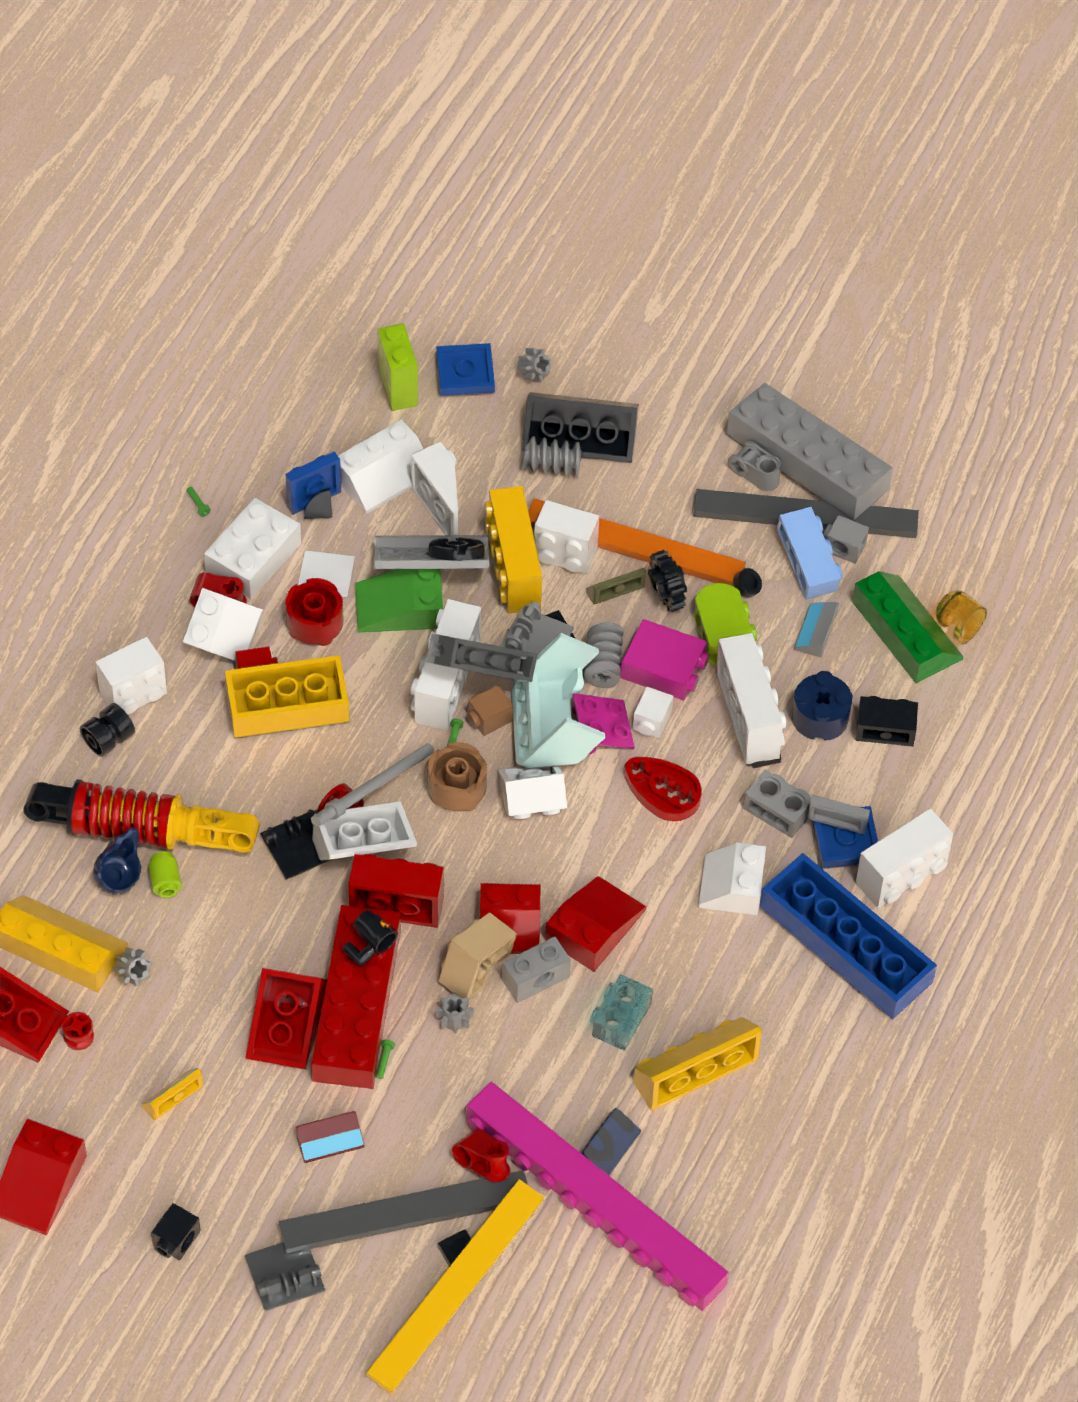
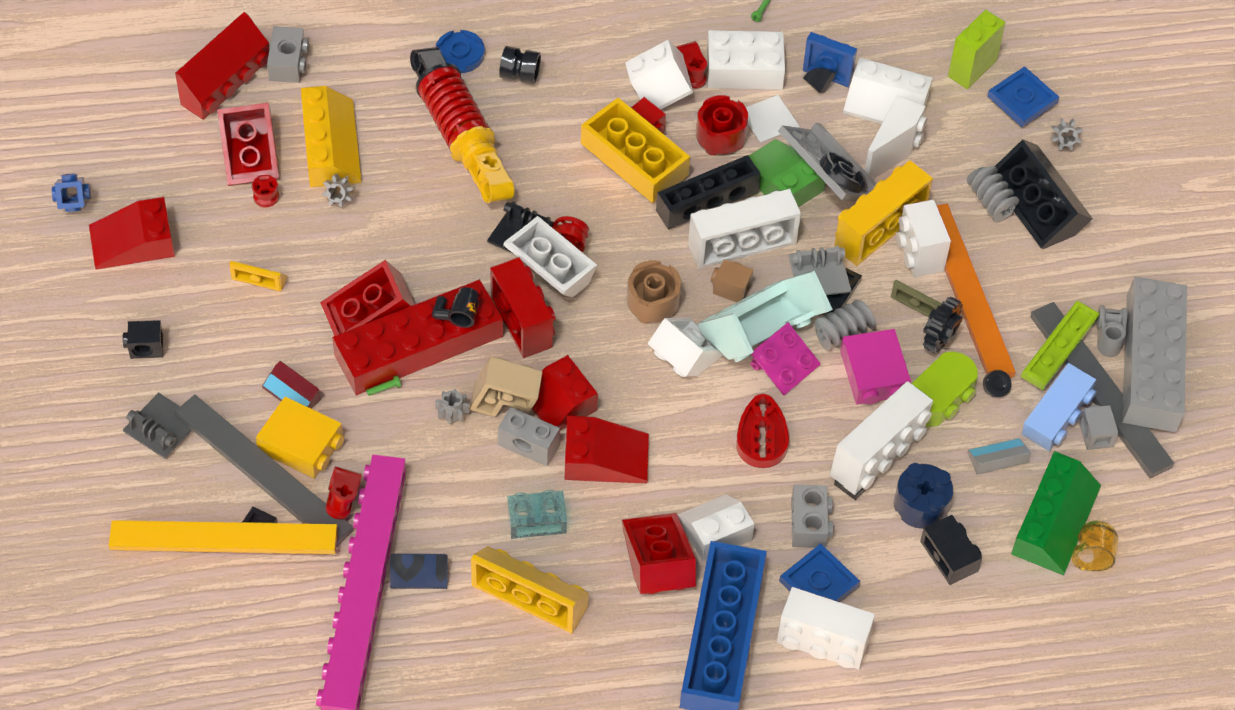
camera: 55 degrees right, 0 degrees up
(37, 765) = (462, 49): none -> blue tile
(118, 864) = (412, 133): dark blue hair -> none
(132, 676) = (570, 50): white brick -> none
(164, 874) = (429, 166): lime brick -> none
(338, 807) = (551, 225): light grey bar -> none
(381, 668) = (708, 191): none -> black brick
(394, 1158) = (300, 437): none -> yellow brick
(456, 725) = (705, 269): bright green piece -> none
(481, 657) = (750, 235): dark grey piece -> none
(653, 712) = (820, 386): white brick -> none
(732, 939) = (659, 553): none -> red slope
(746, 512) = (1060, 345): none -> lime tile
(838, 814) = (826, 559): light grey tile -> none

